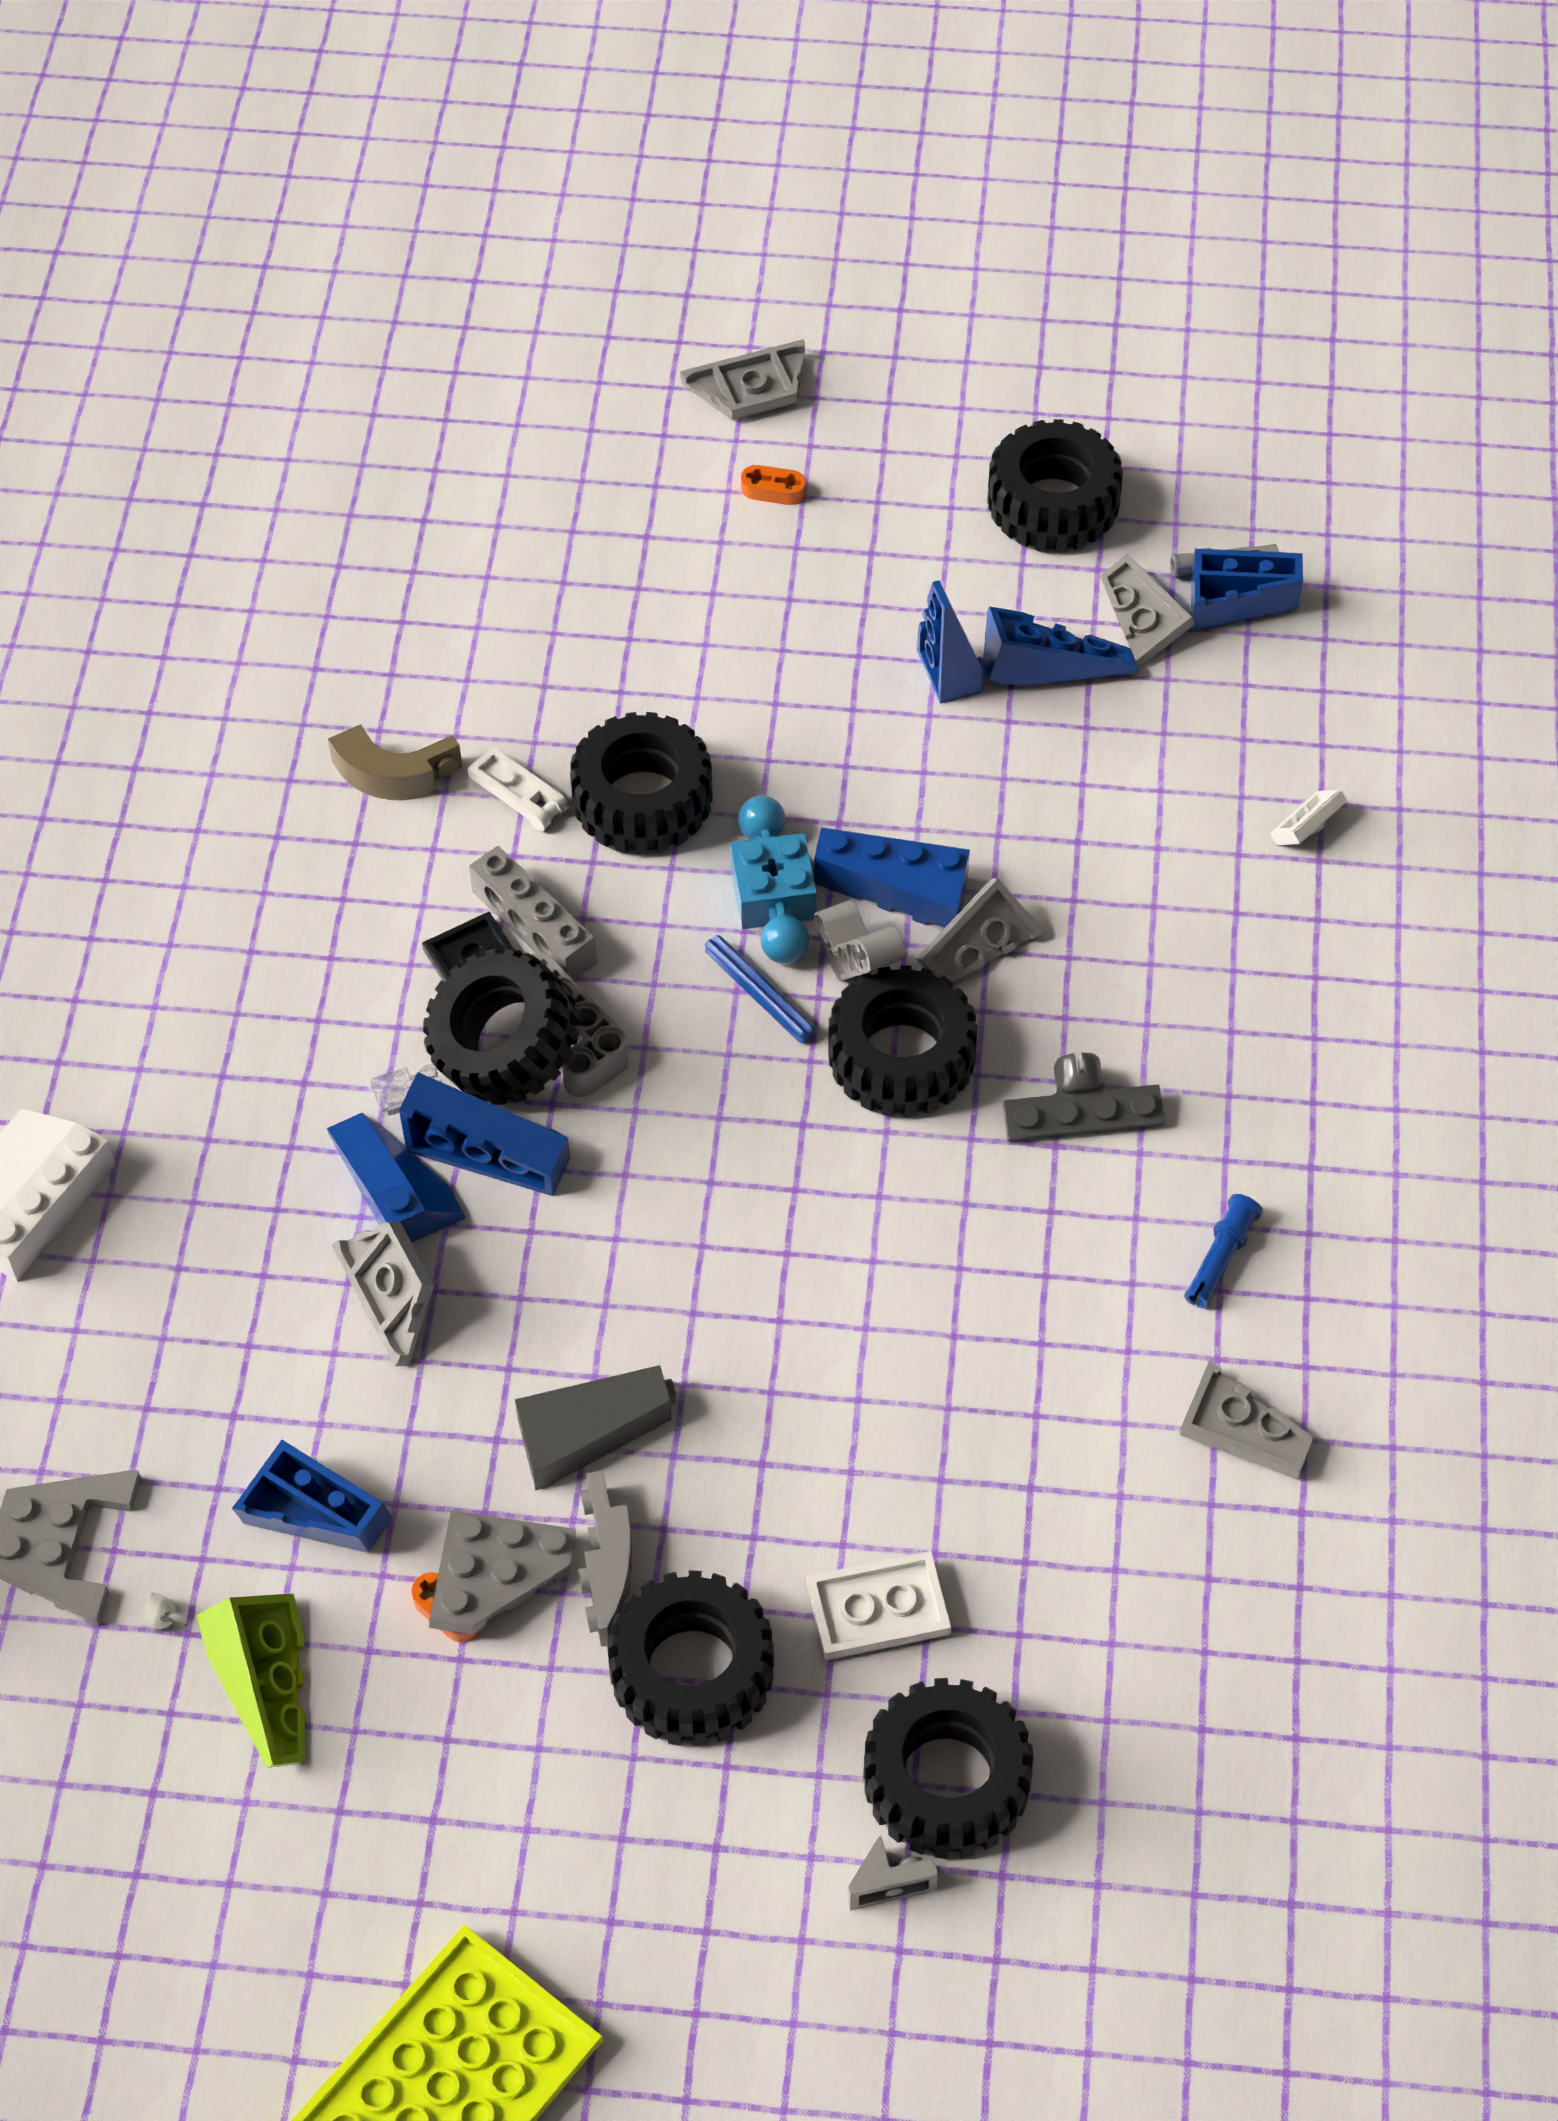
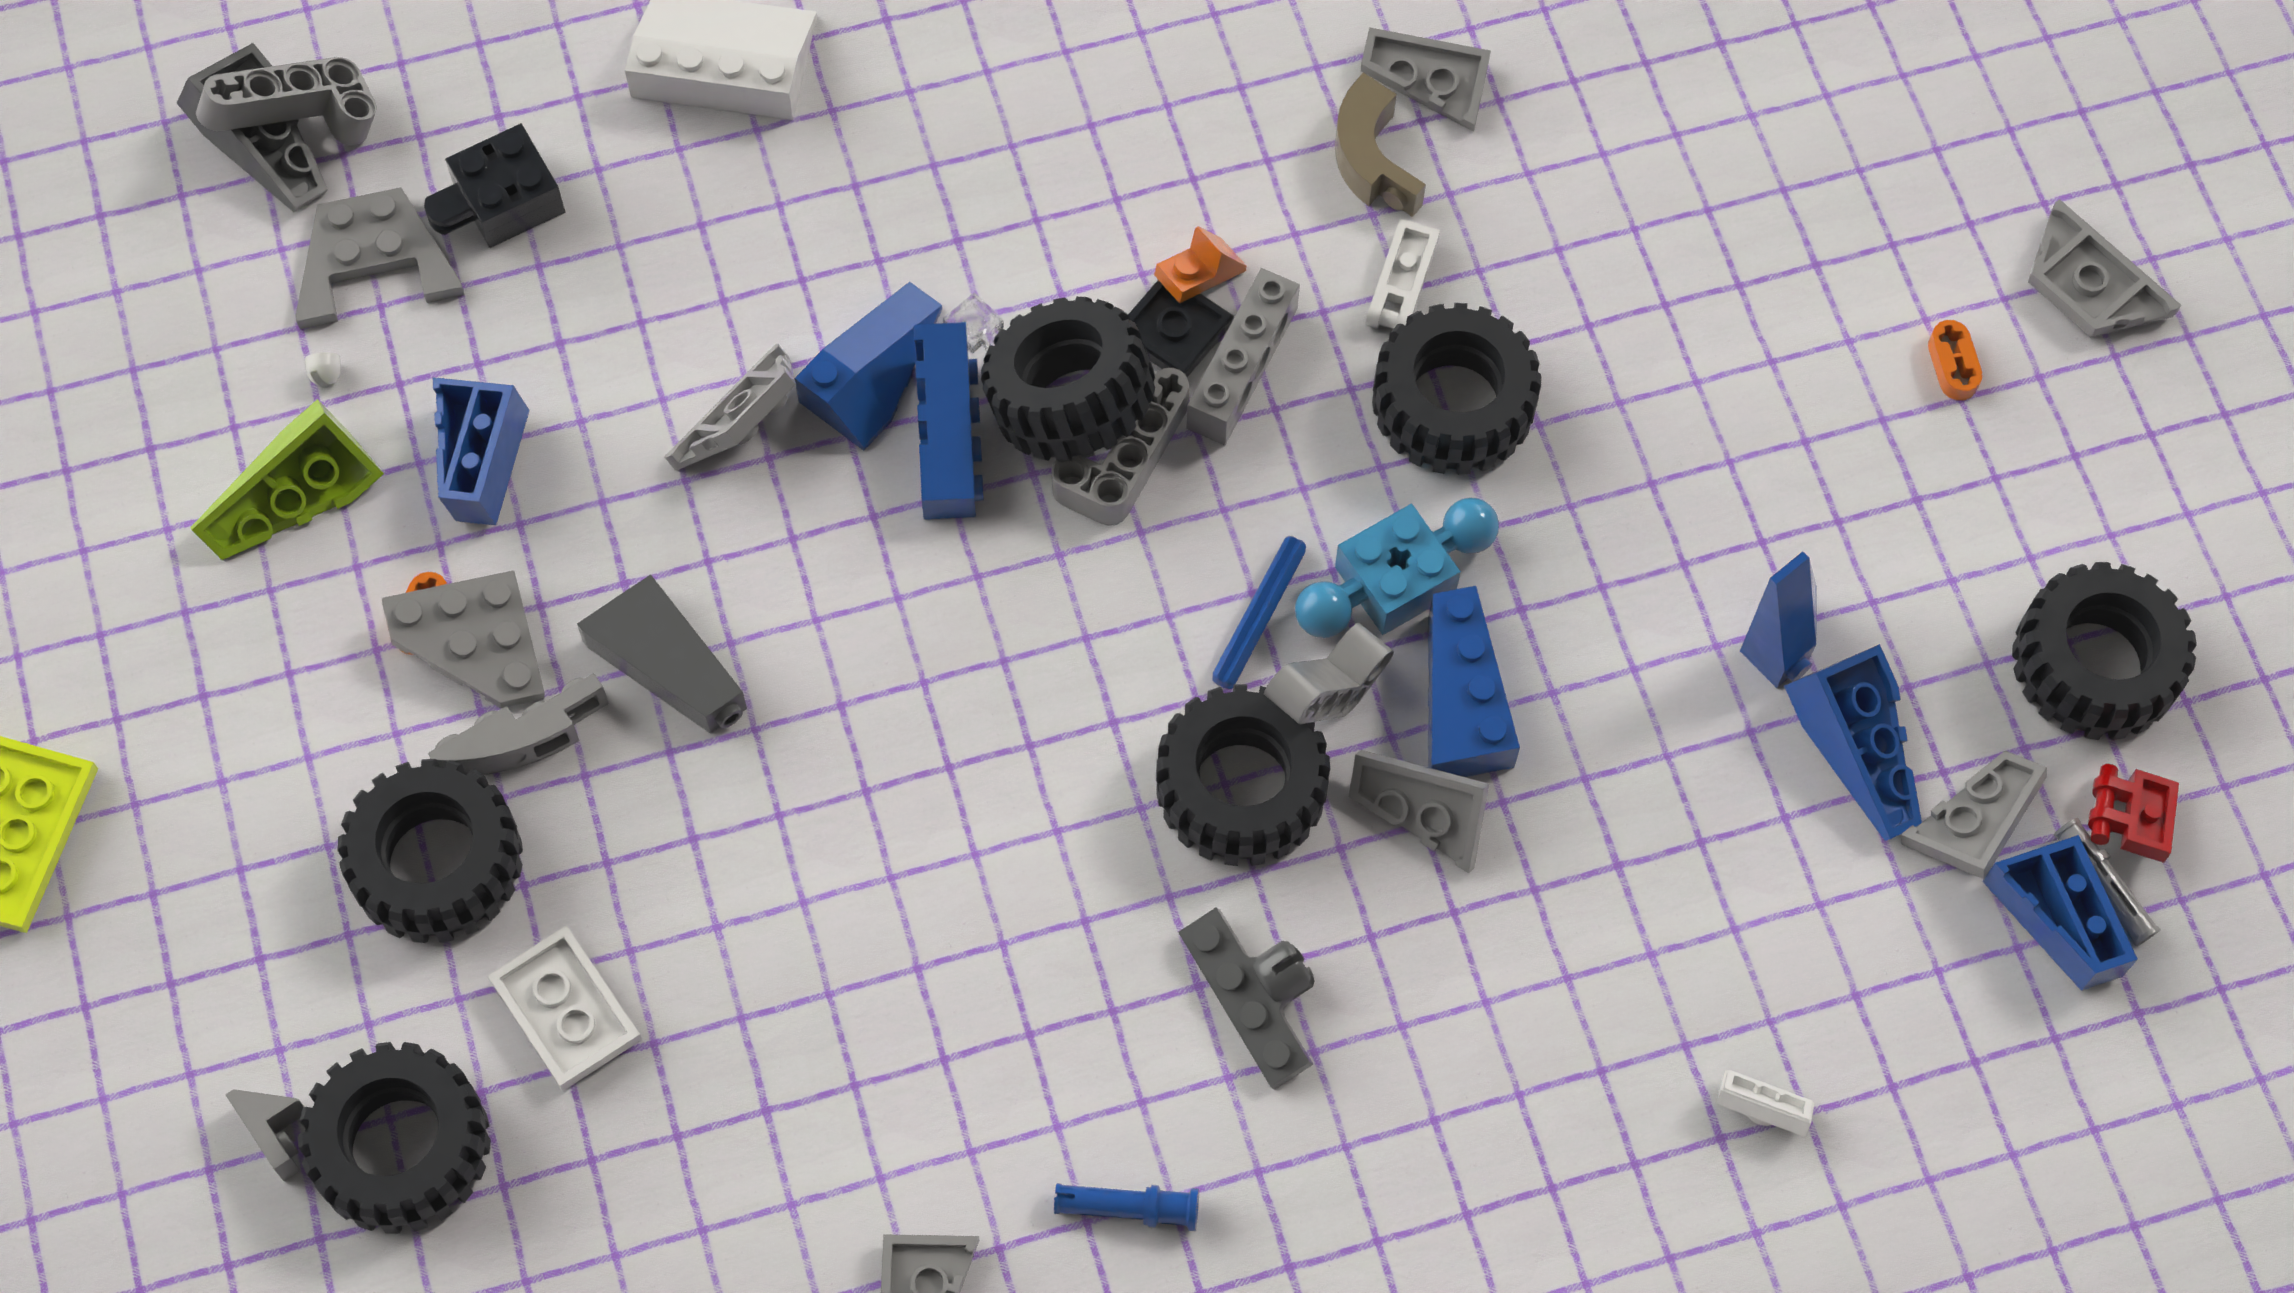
camera: 65 degrees right, 10 degrees up
(58, 1406) = (498, 187): none -> black brick
(345, 700) = (1429, 71): none -> light grey wing
(434, 916) = (1199, 267): none -> orange slope
(1186, 514) = (2148, 813): none -> red plate

